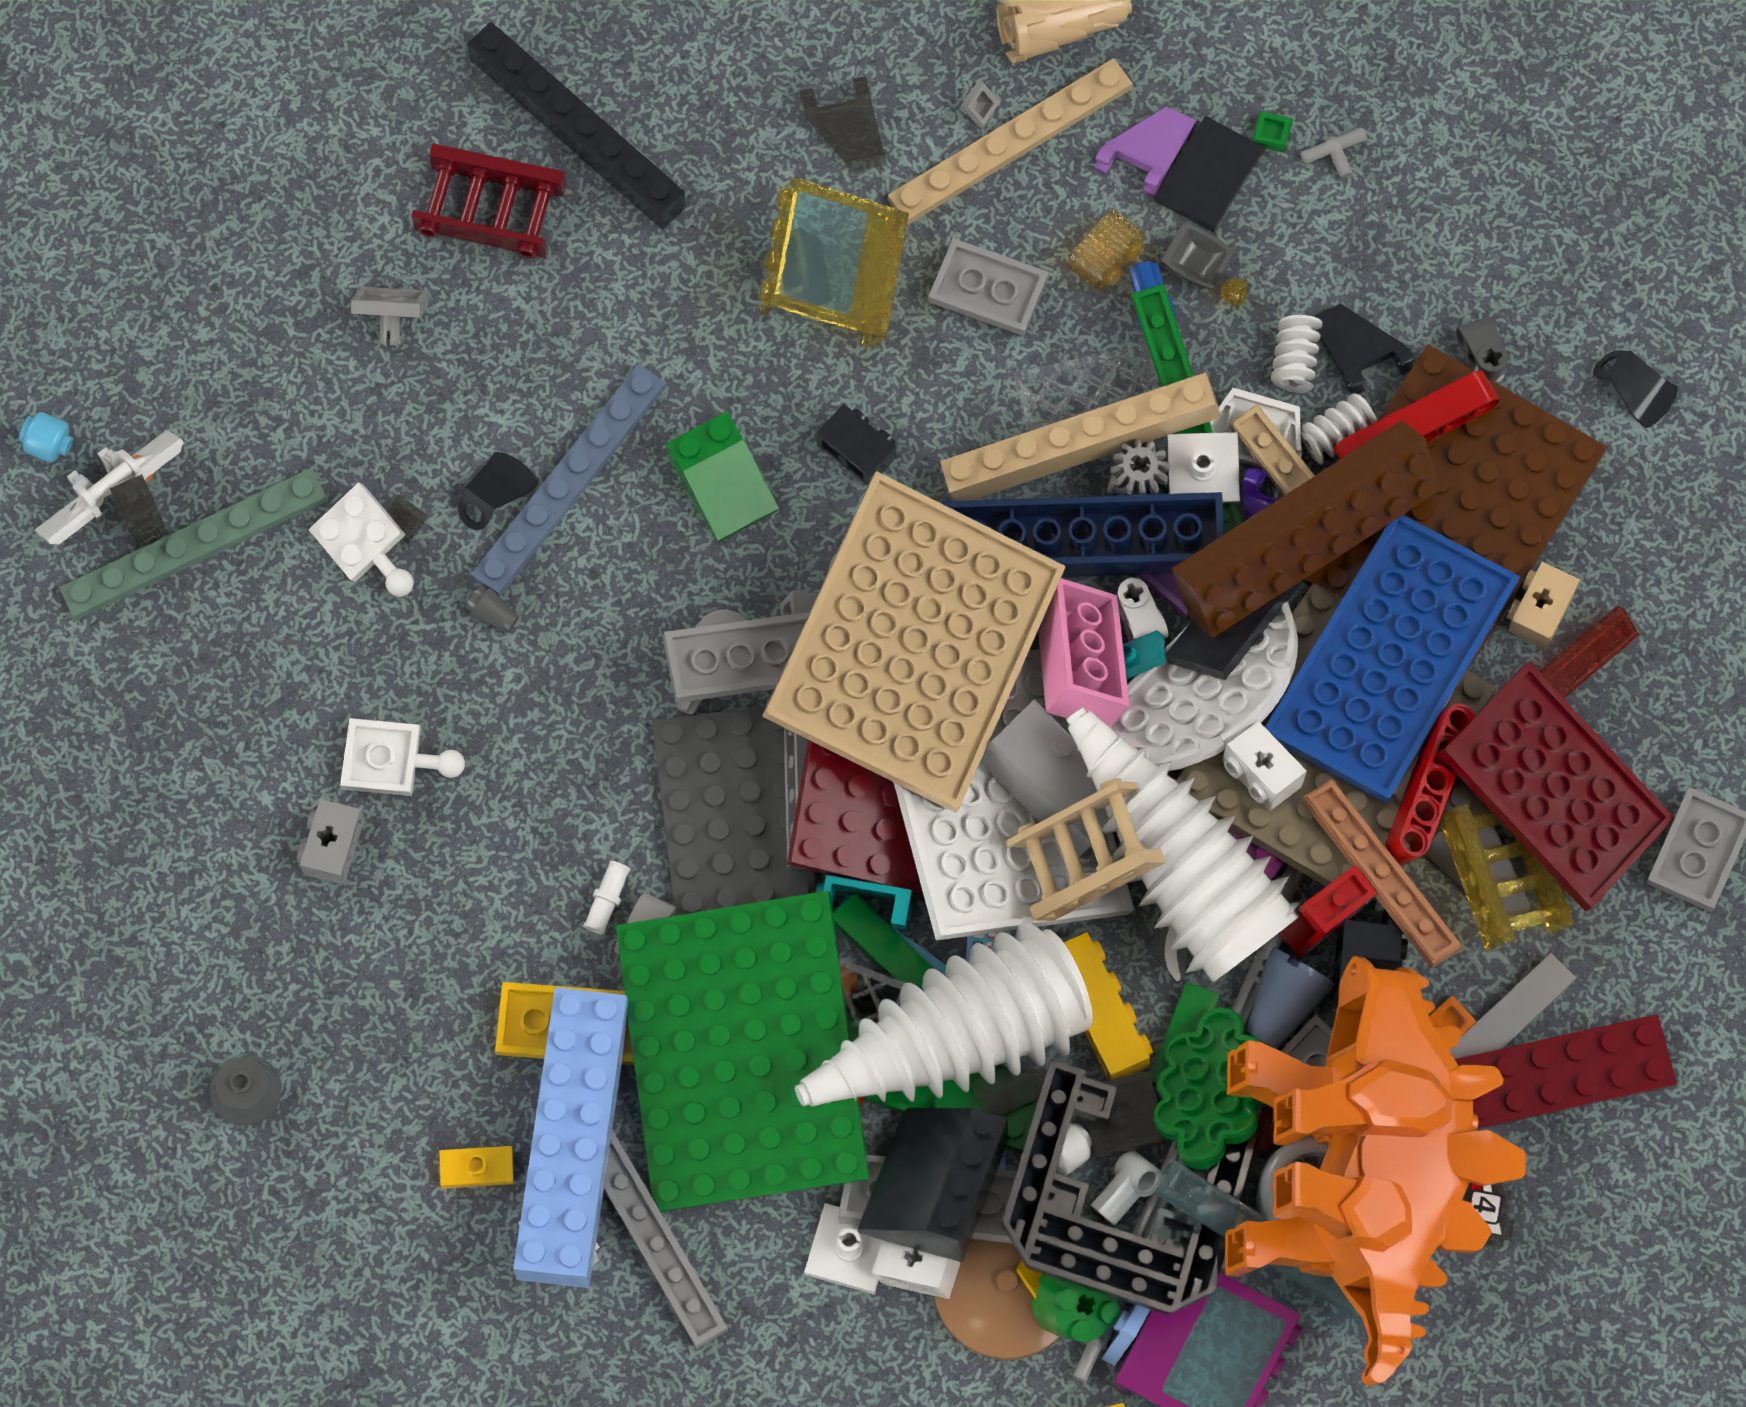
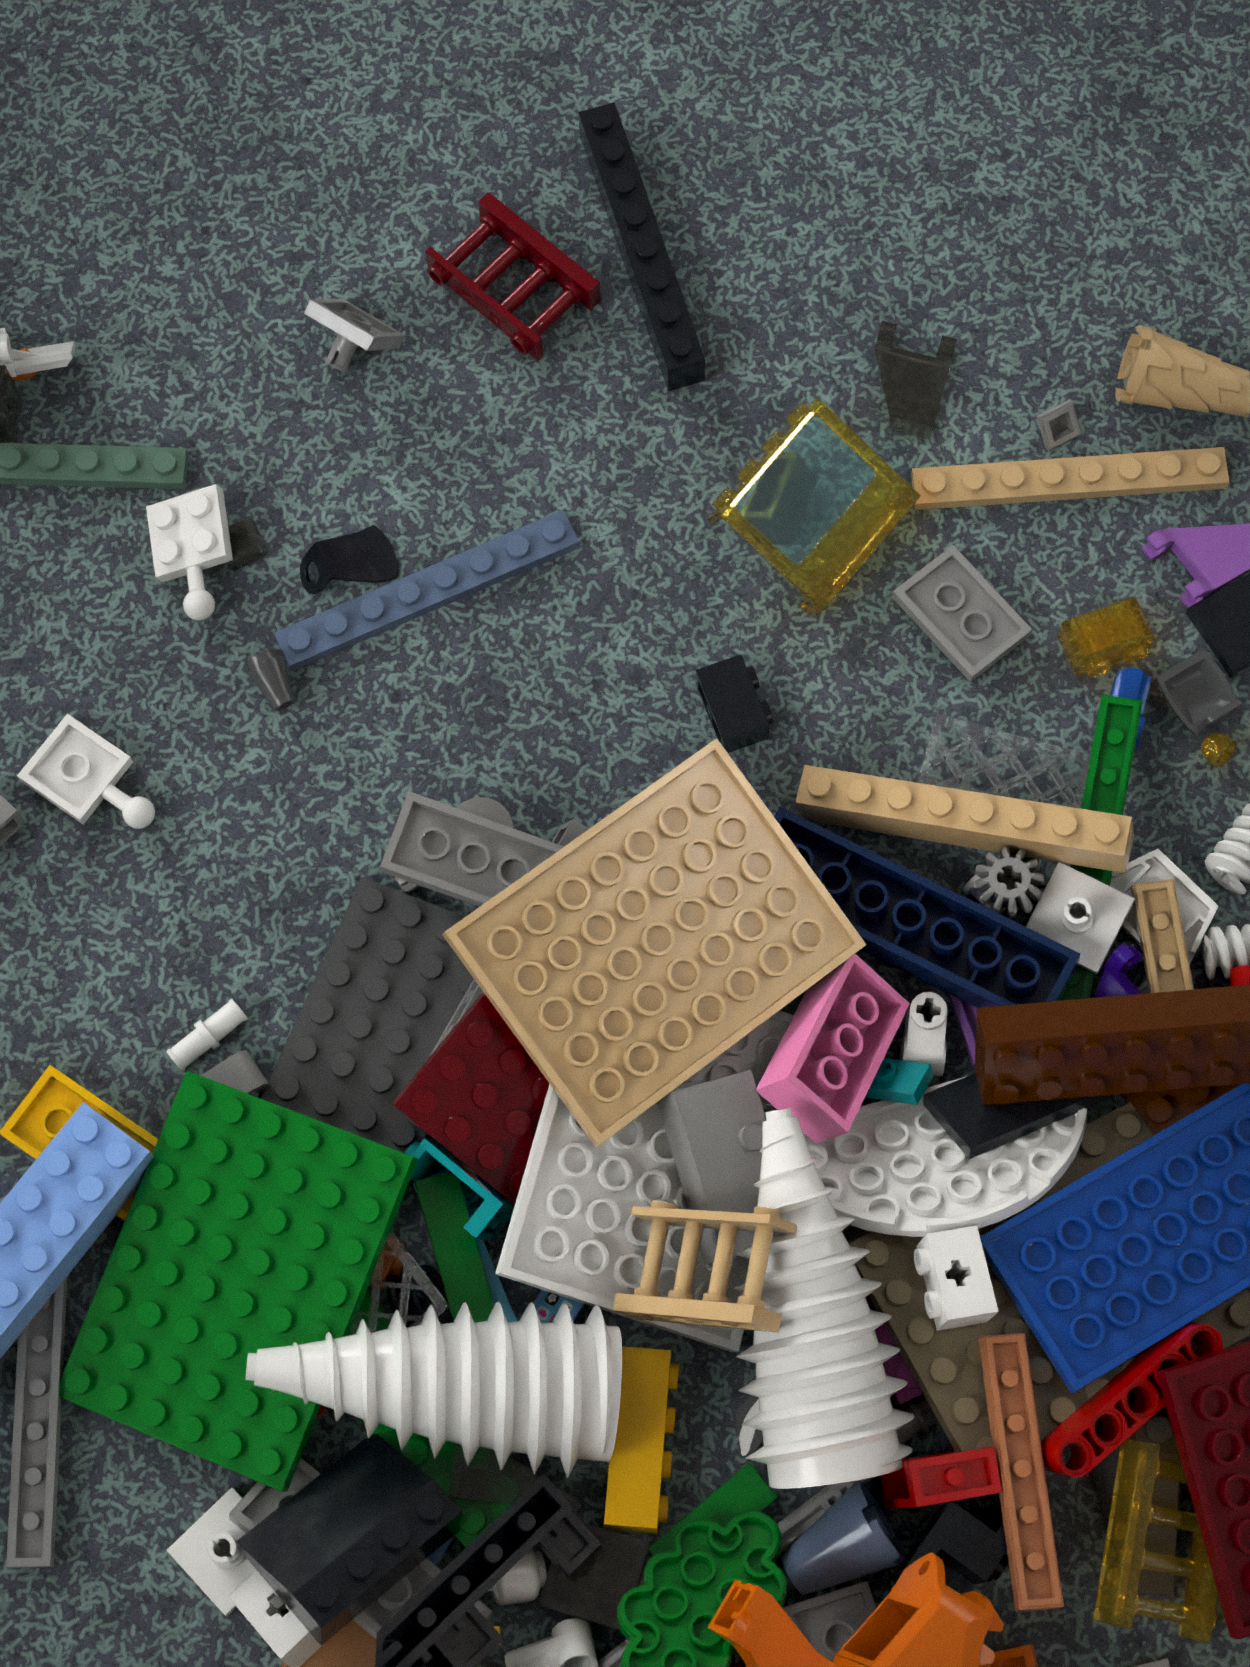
camera: 30 degrees right, 0 degrees up
(721, 476) = (577, 665): green slope -> none

